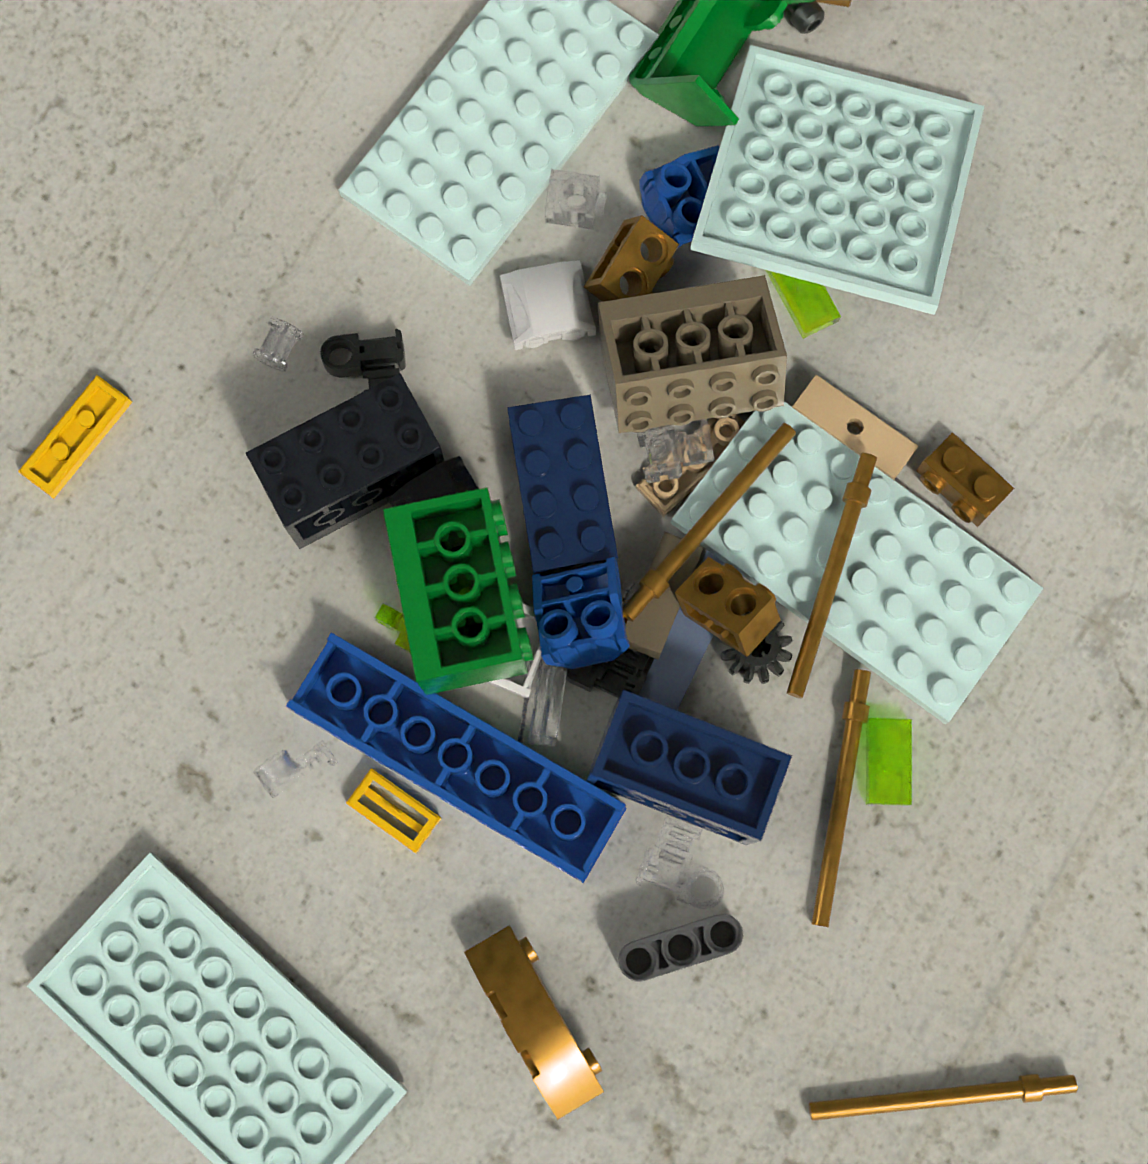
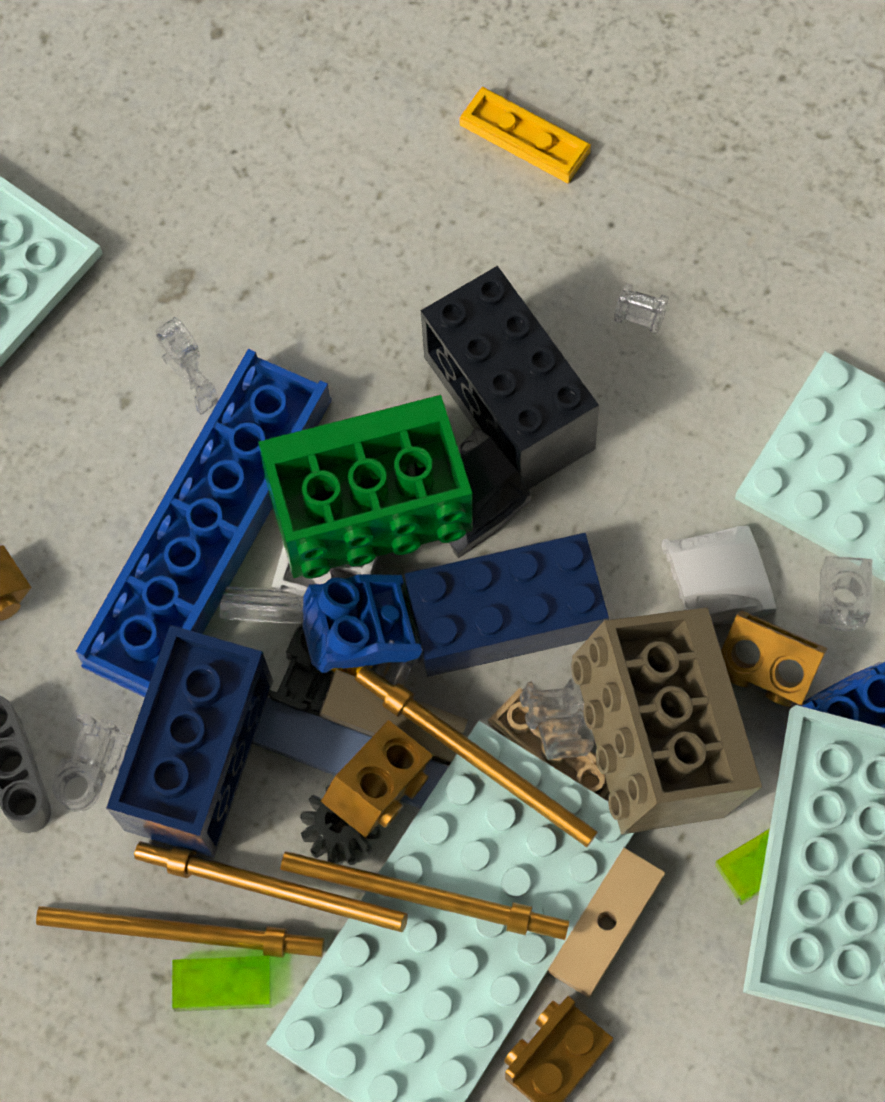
camera: 90 degrees right, 10 degrees down
(374, 354) = (636, 402): pearl dark grey piece -> none
(423, 832) = (152, 500): yellow tile -> none
(816, 700) = (185, 862): none -> pearl gold bar

